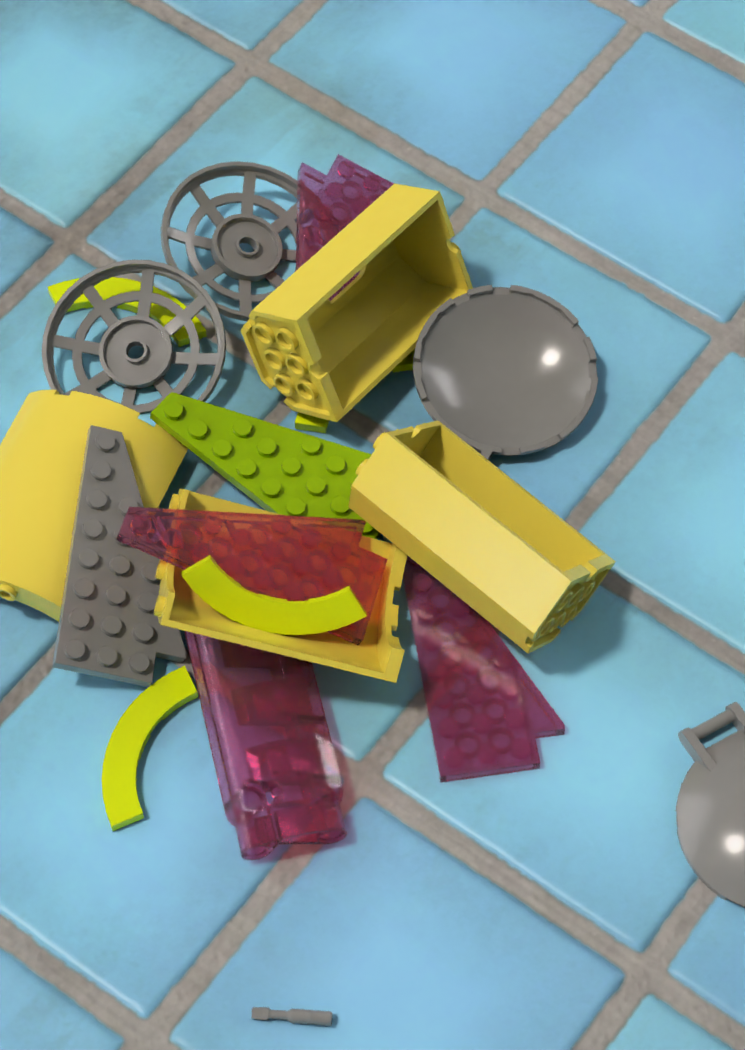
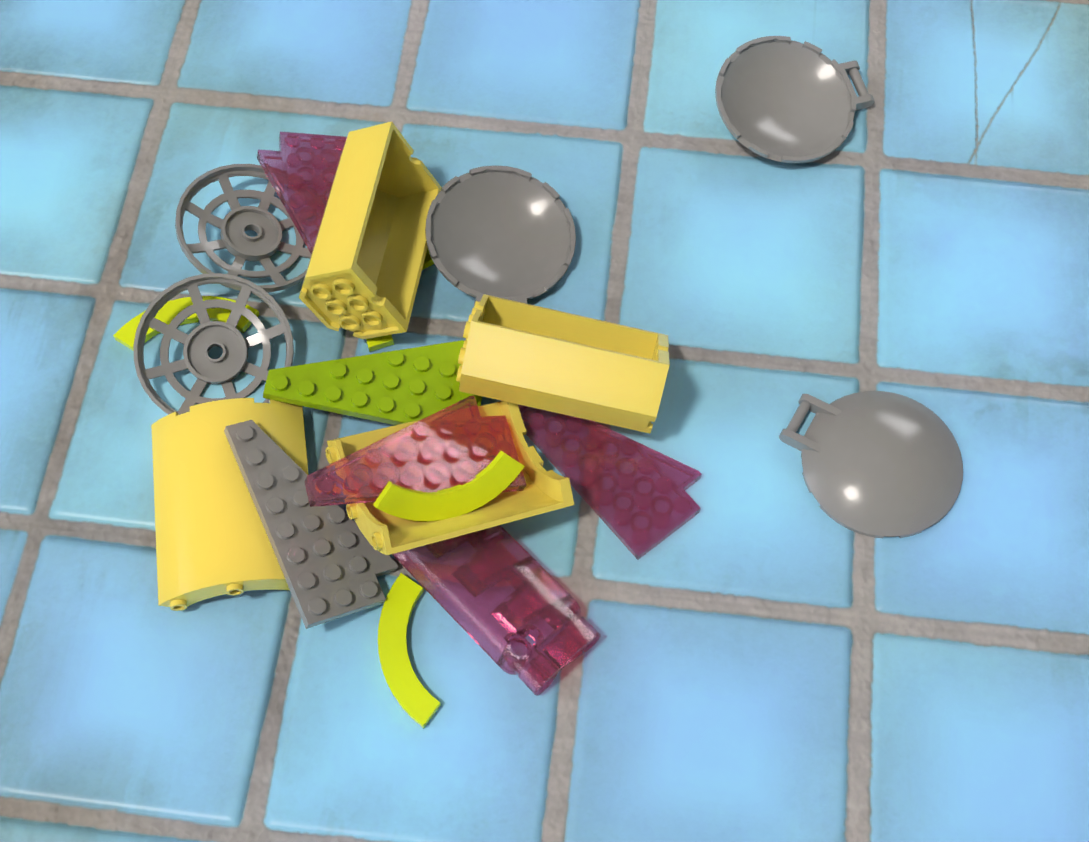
camera: 30 degrees left, 5 degrees up
(298, 1016) = (645, 792): light grey piece -> none

